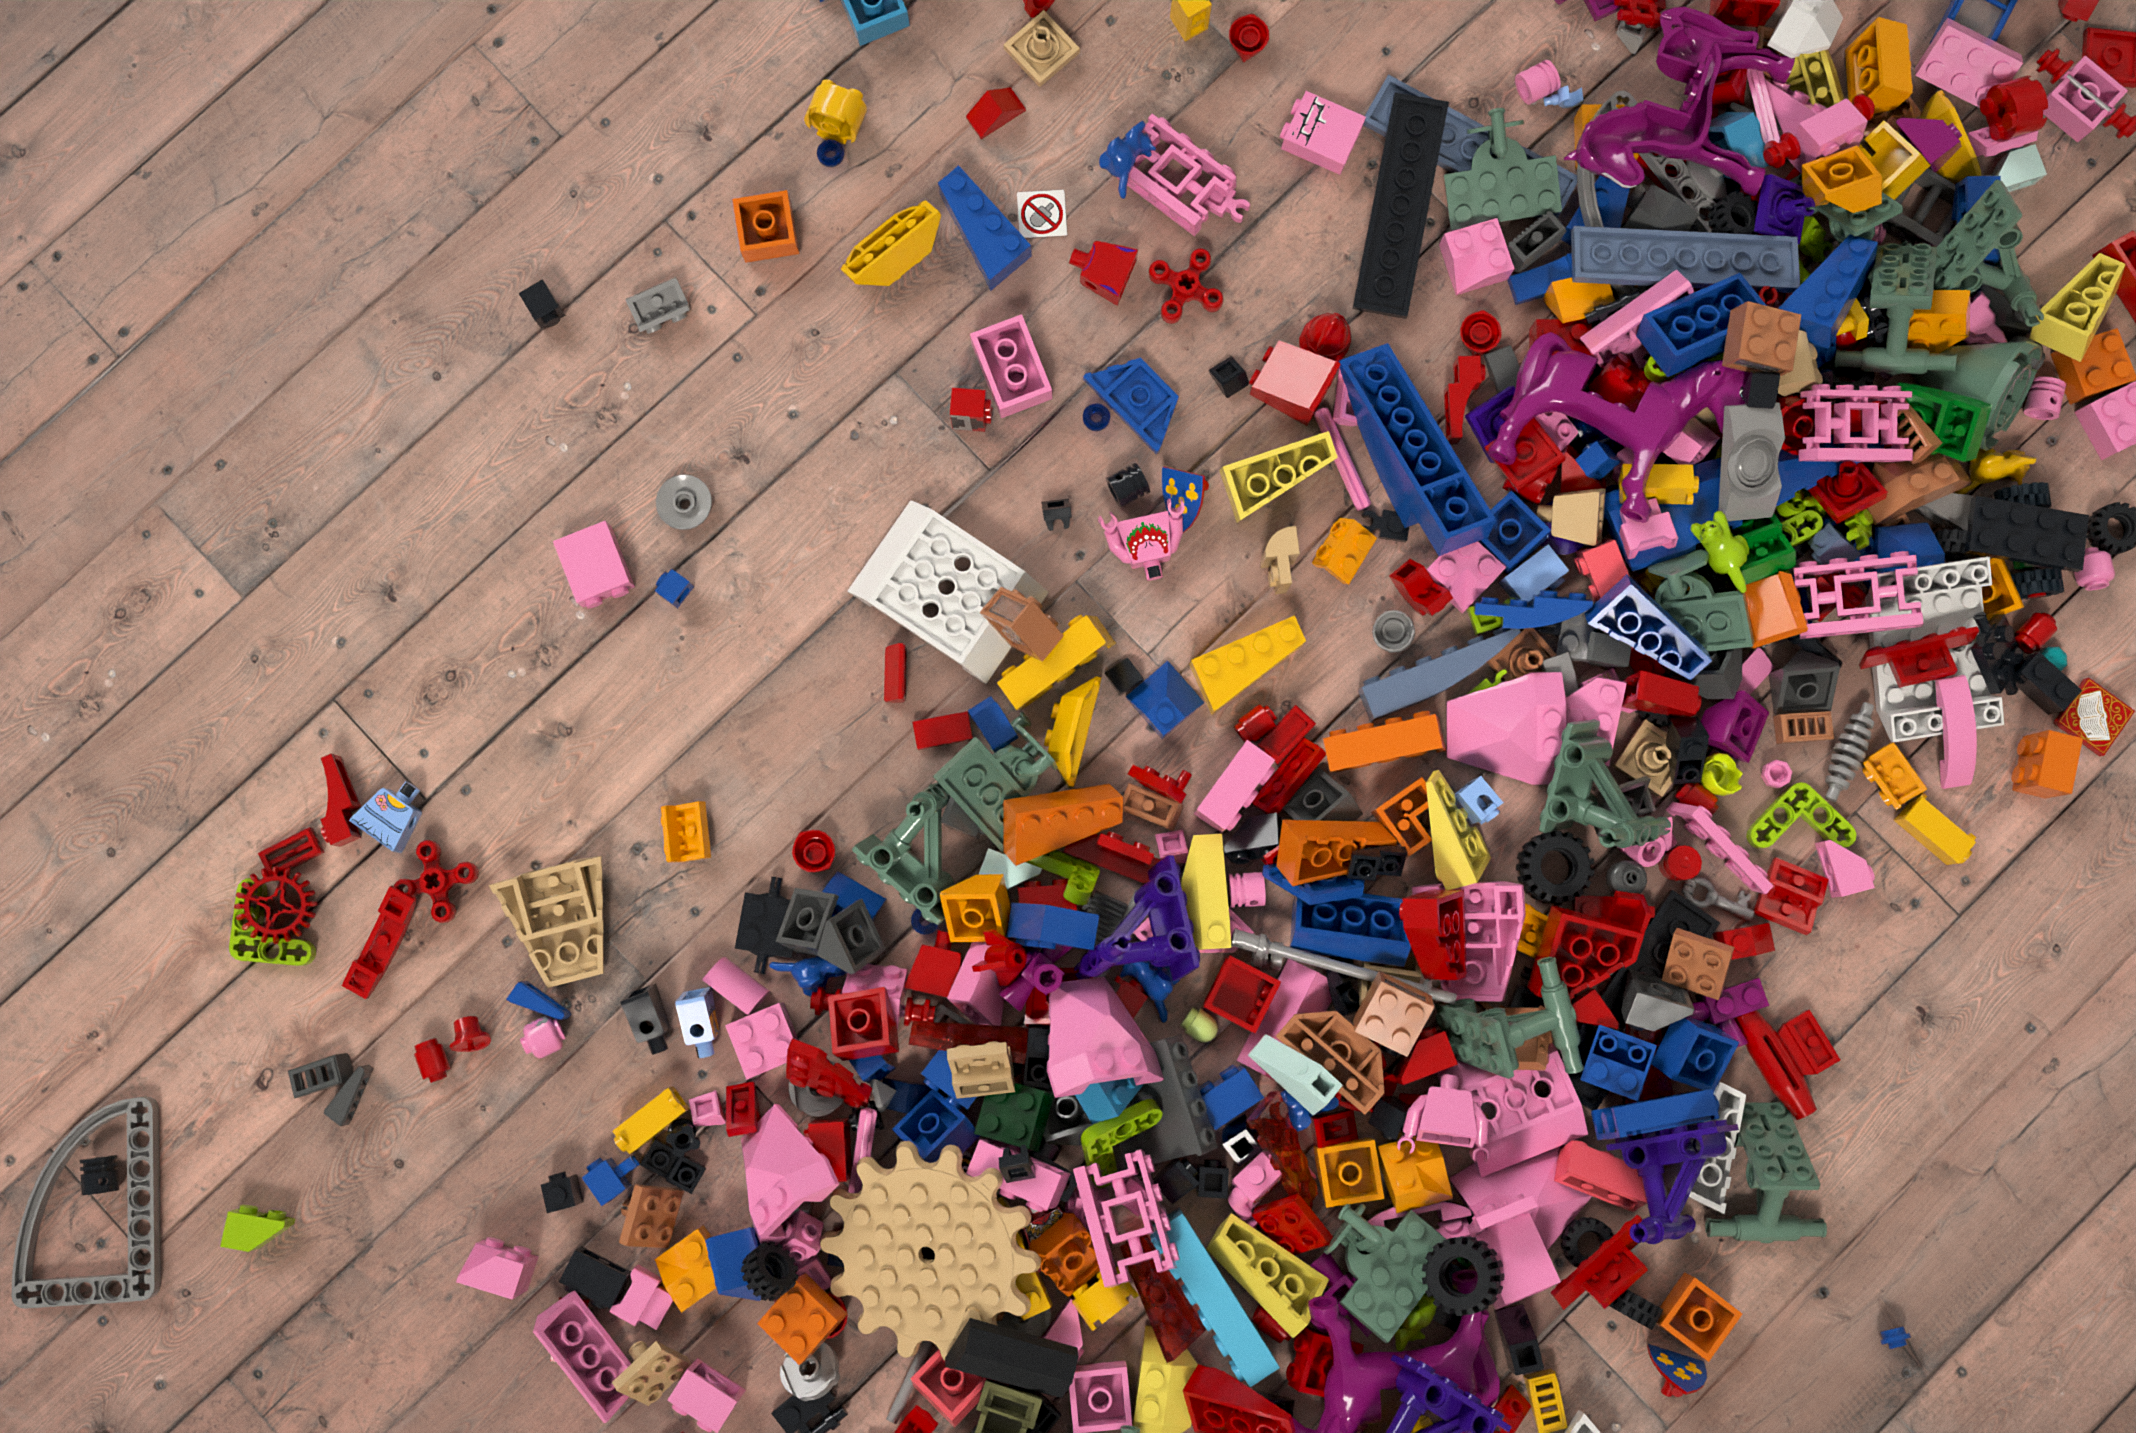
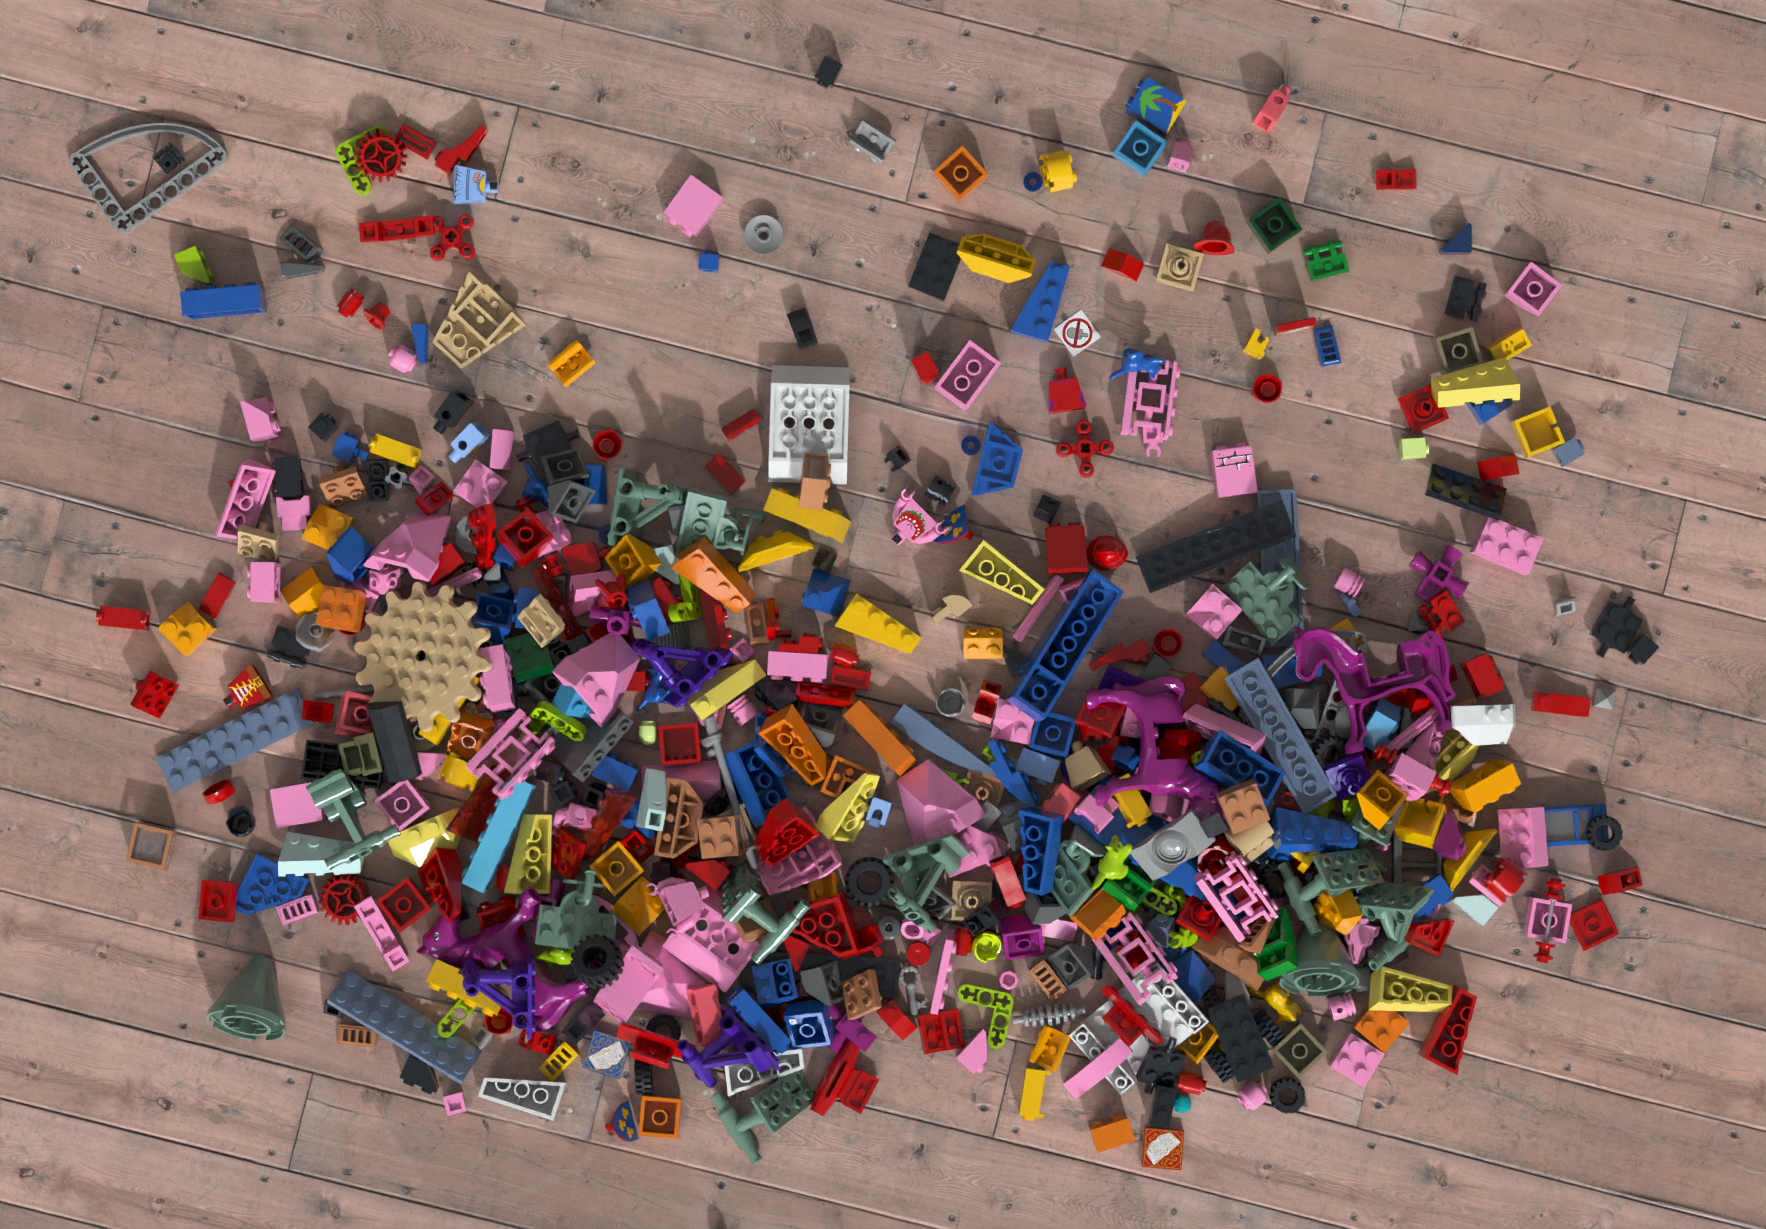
camera: 55 degrees right, 5 degrees up
(319, 1221) = (223, 301): none -> blue brick
(752, 1352) = (304, 593): none -> light orange slope
(761, 1280) = (364, 575): black tyre -> none
(828, 526) = (802, 329): none -> black slope
(857, 326) = (935, 267): none -> black plate
(993, 724) = (746, 501): blue slope -> none
(1016, 1166) = (500, 673): black tile -> none
(1214, 760) = (807, 644): none -> red plate
(1377, 860) = (807, 776): black slope -> none
(1573, 1335) = (606, 1054): none -> tile
(2030, 247) = (1429, 934): none -> red wing
(2074, 477) = (1298, 1050): none -> dark tan brick

